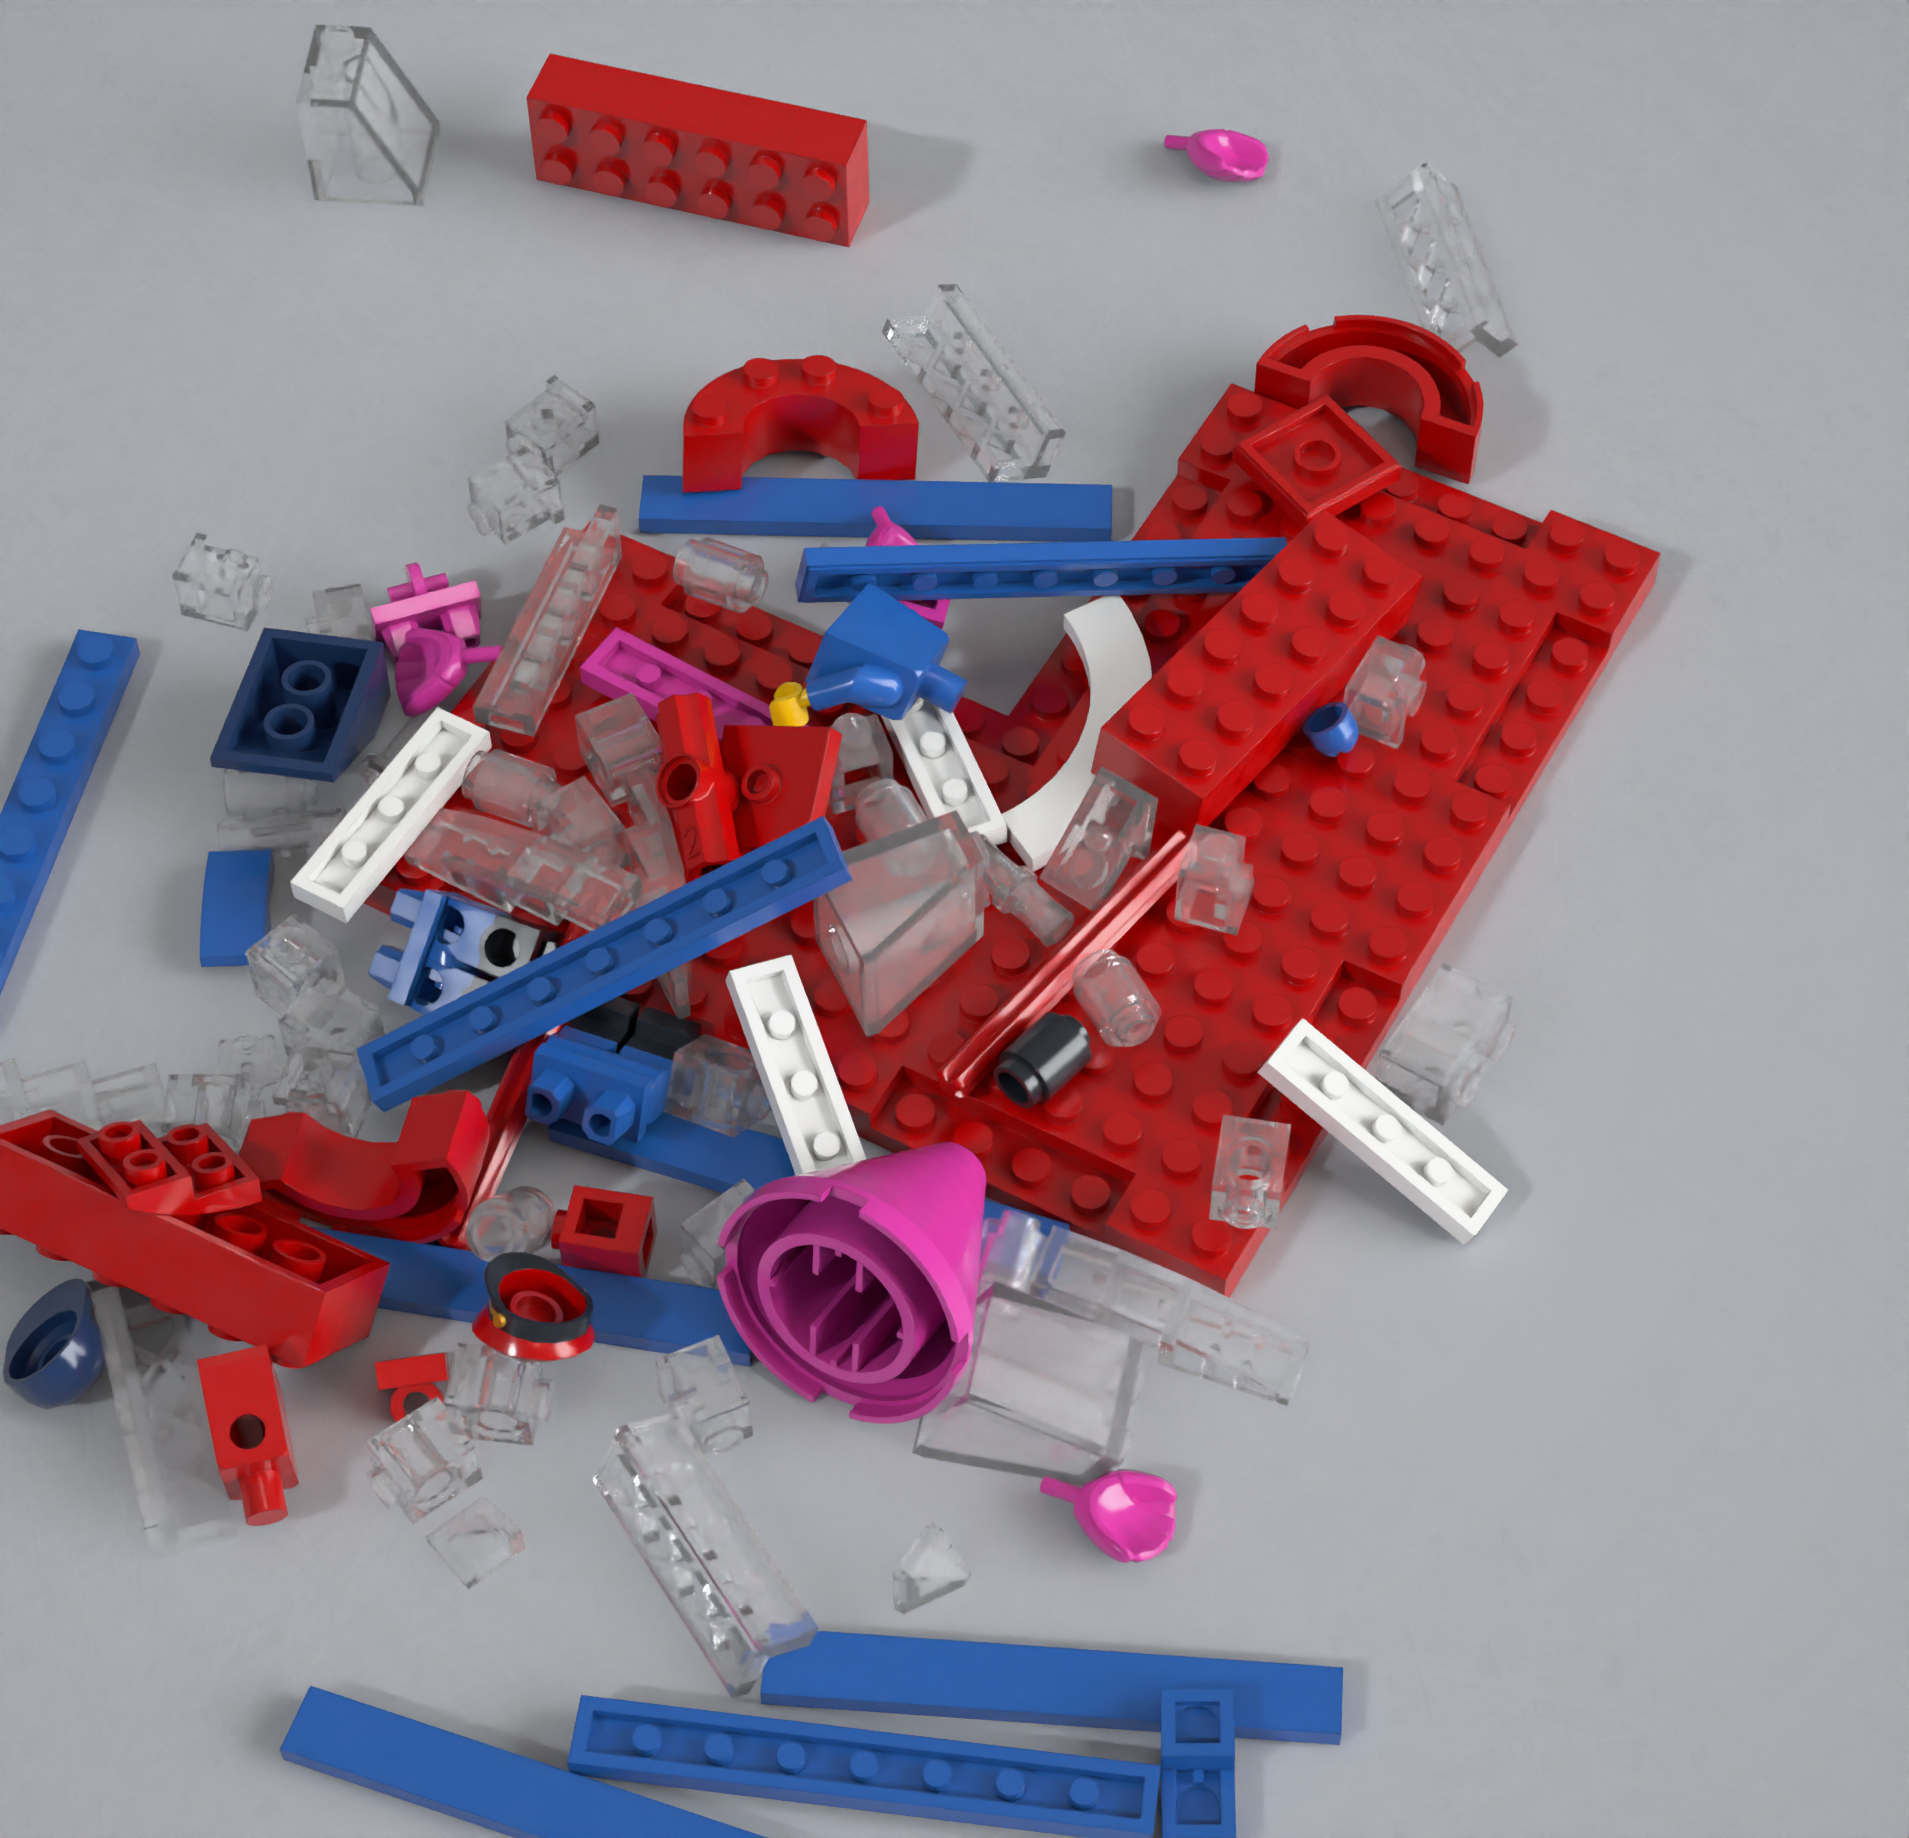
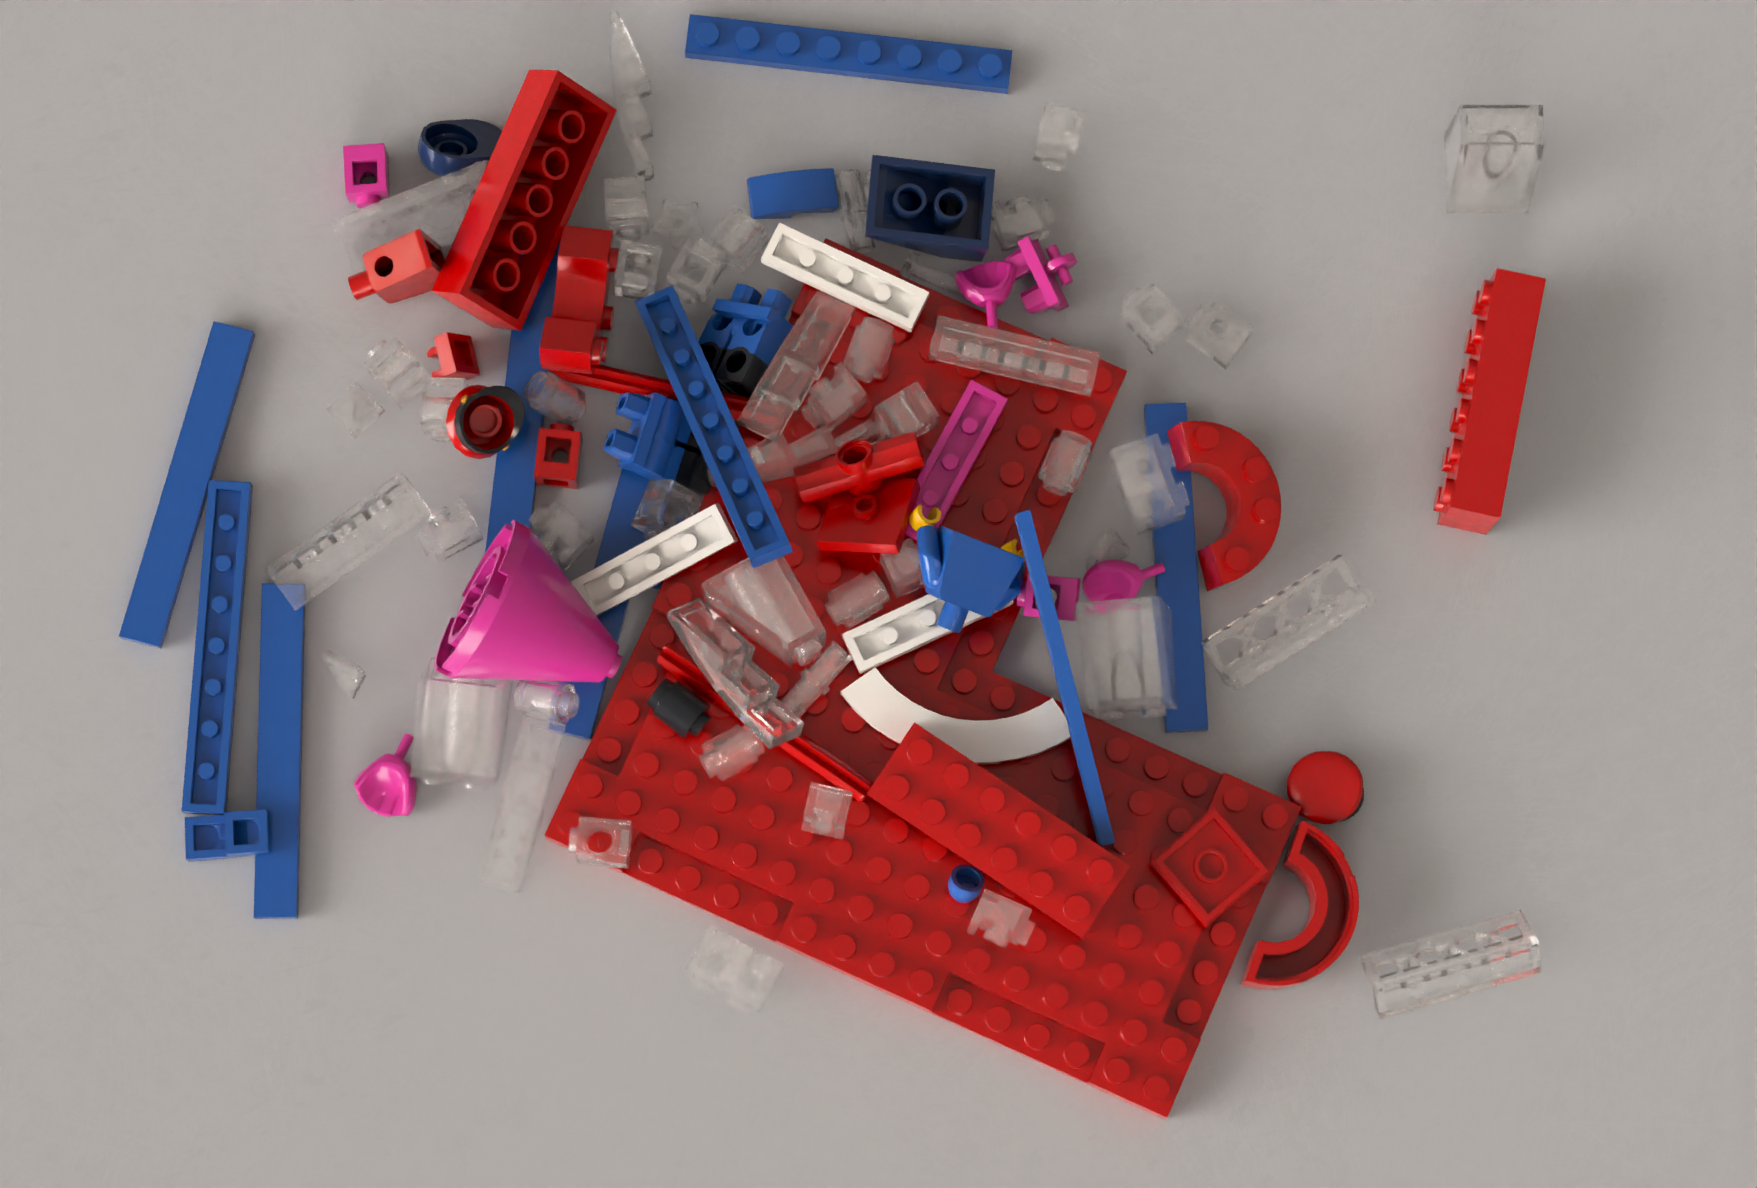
camera: 80 degrees right, 25 degrees up
(70, 1486) = (360, 163): none -> dark pink brick
(173, 1174) = (553, 188): red slope -> none
(763, 498) = (1148, 483): none -> clear brick
(972, 990) = (728, 666): none -> clear slope
(1006, 504) = (1127, 657): none -> clear slope
(1101, 837) = (846, 731): clear slope -> none
(1200, 361) = (1326, 787): none -> red piece
(1223, 154) = (1551, 794): dark pink piece -> none
(1383, 1131) = (655, 928): white plate -> none

